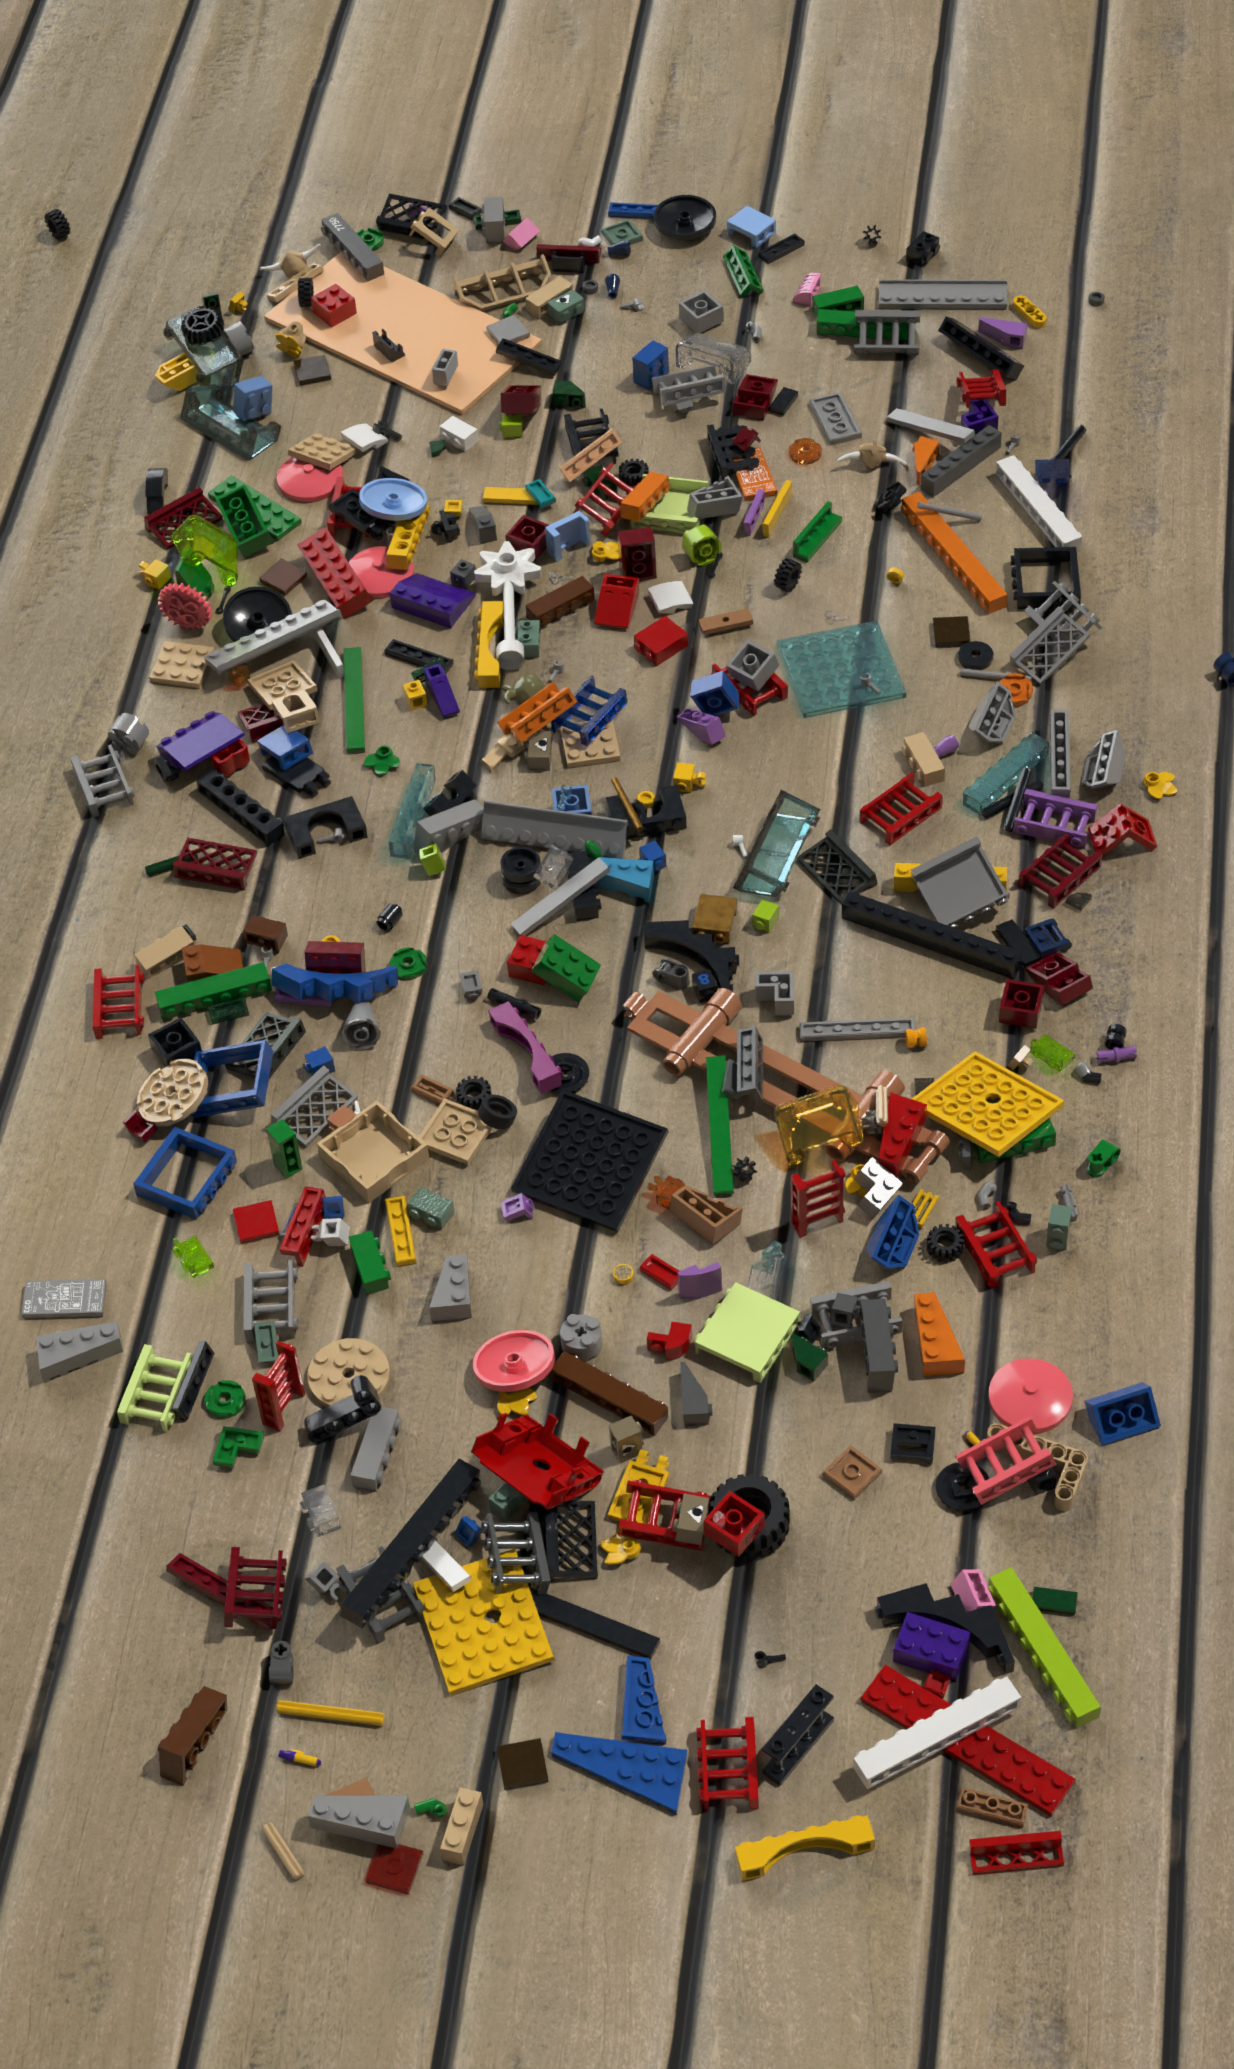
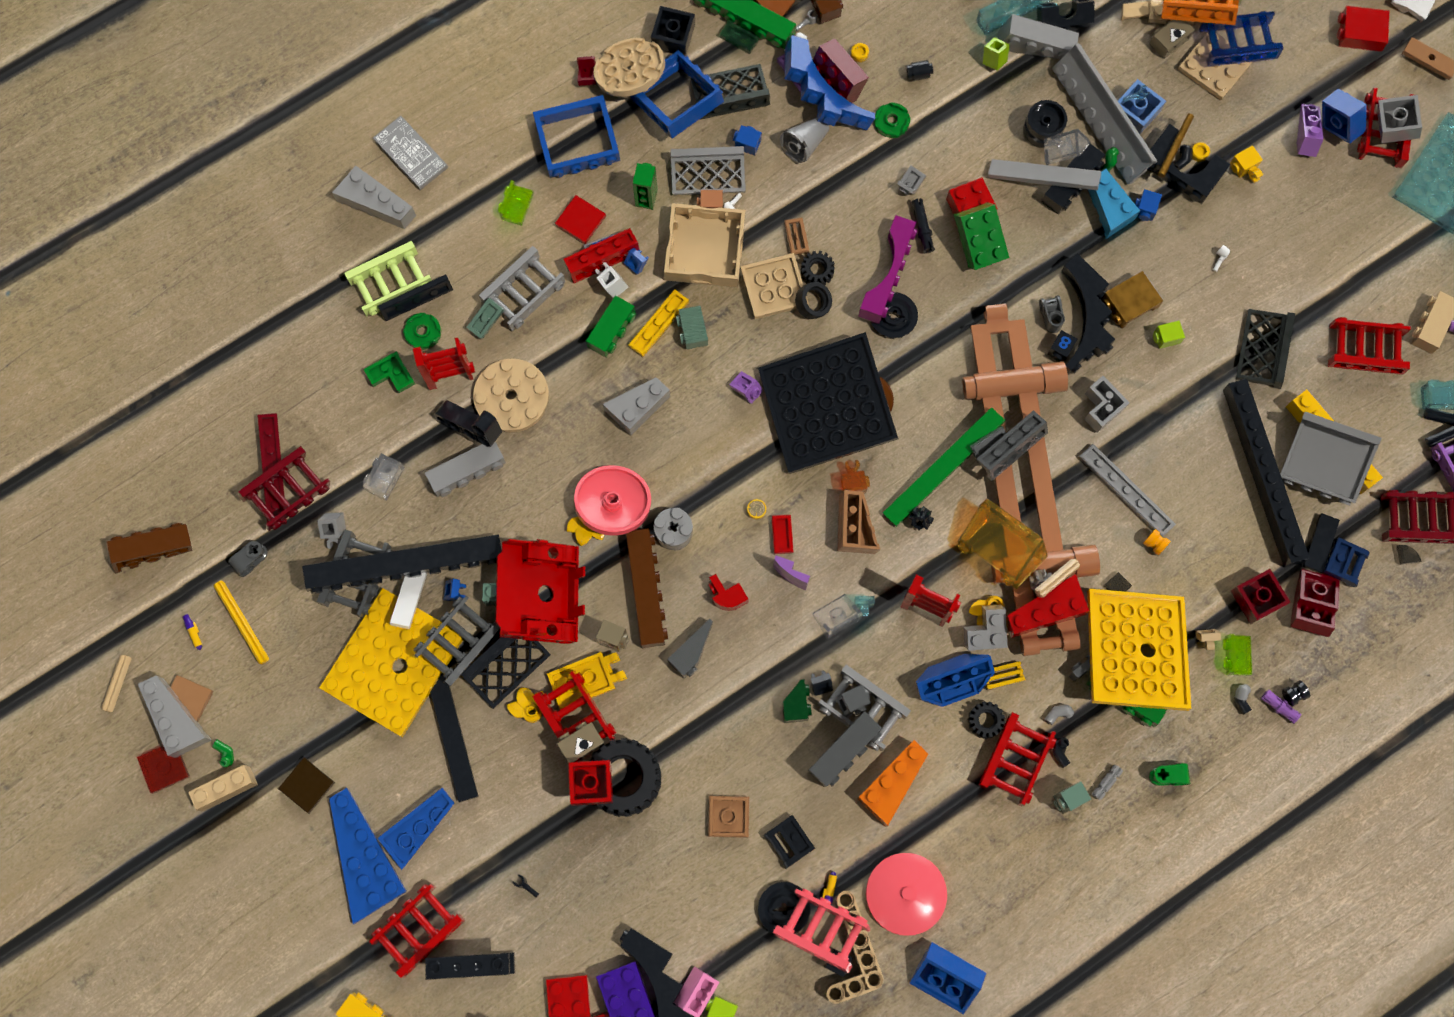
camera: 45 degrees right, 25 degrees up
(748, 1330) = (781, 641): yellowish green panel -> none
(777, 846) = (1242, 287): clear light blue windscreen -> none

